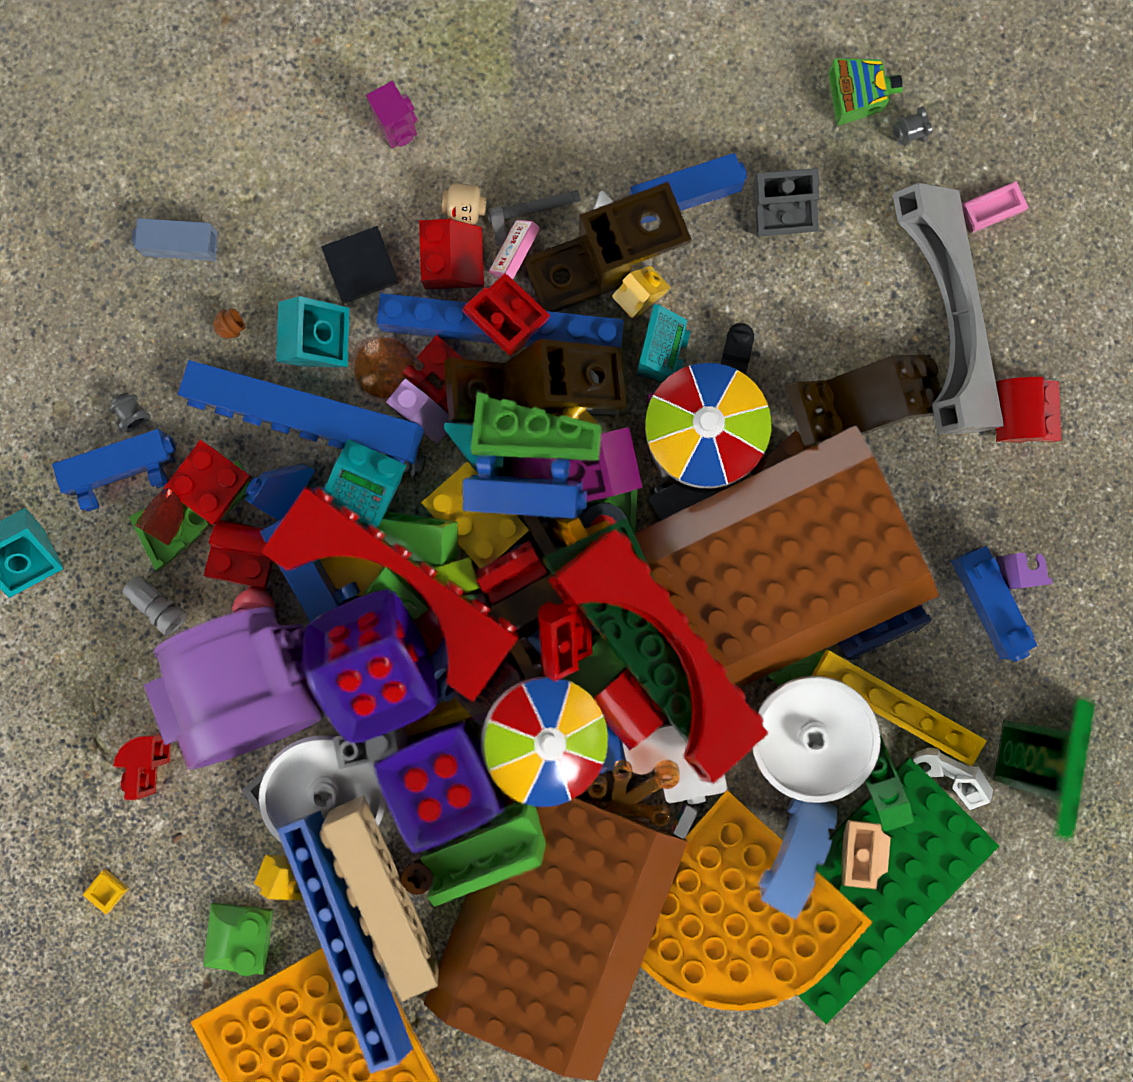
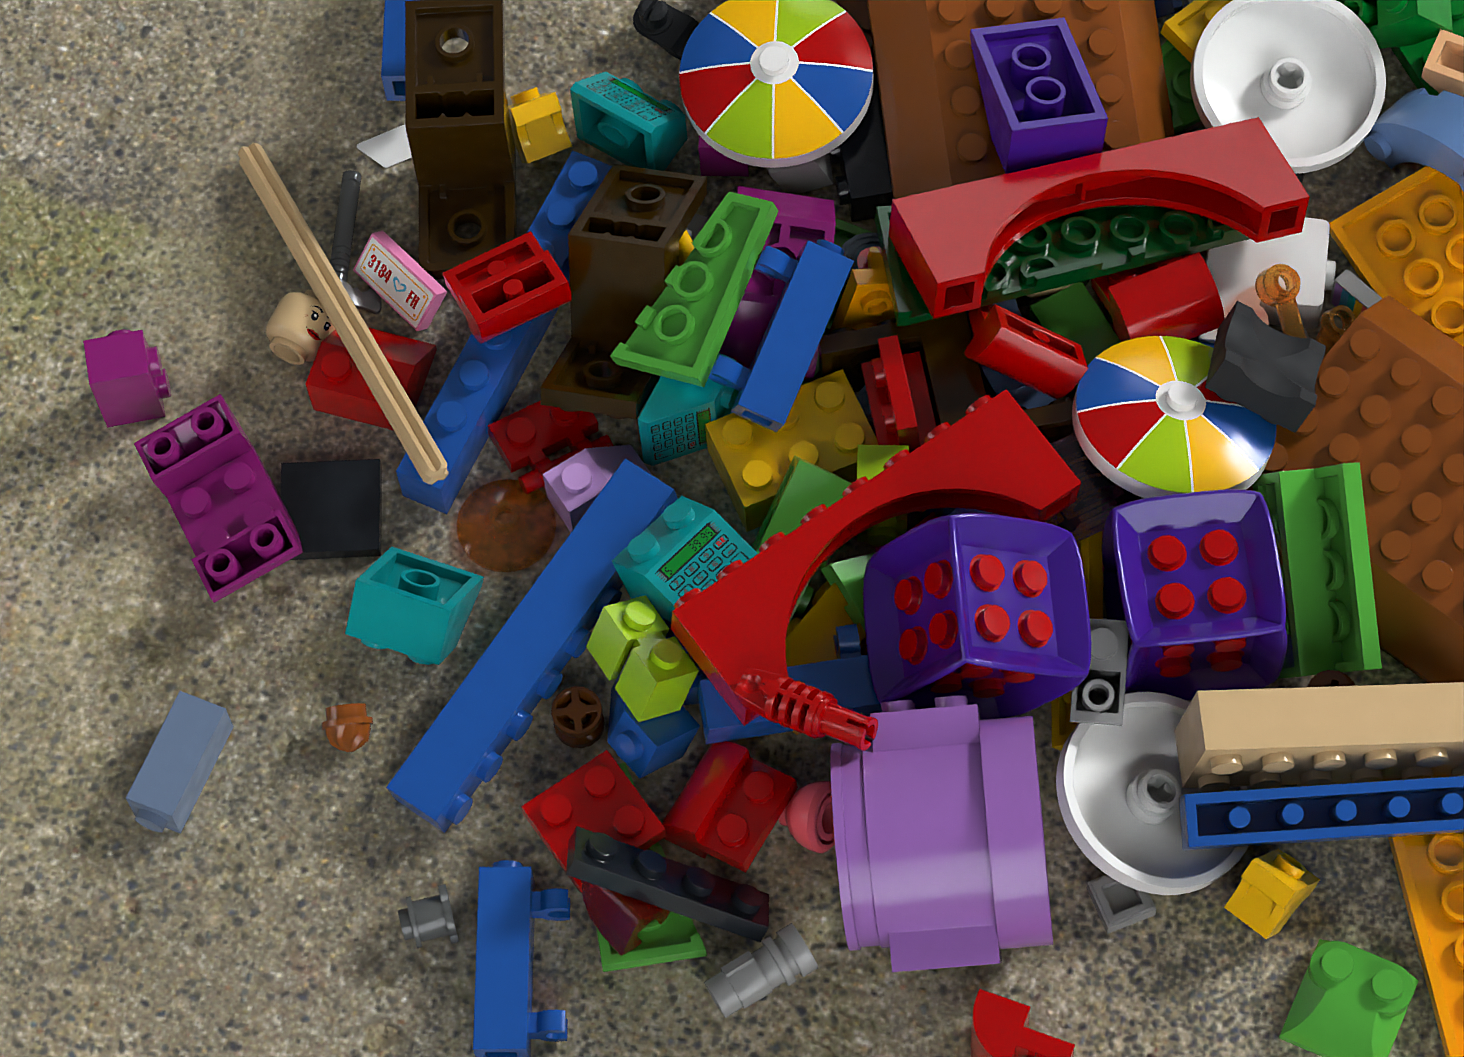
camera: 65 degrees left, 20 degrees down
(176, 537) = (668, 884): none -> black plate
(261, 586) = (803, 708): none -> red hinge
(268, 448) = (576, 705): none -> reddish brown wheel
(311, 470) = (658, 668): none -> lime piece
(336, 205) = (220, 497): none -> magenta slope
(468, 224) = (344, 315): none -> tan axle
(592, 787) = (1264, 368): none -> black brick
(733, 592) = (1037, 94): none -> dark purple slope

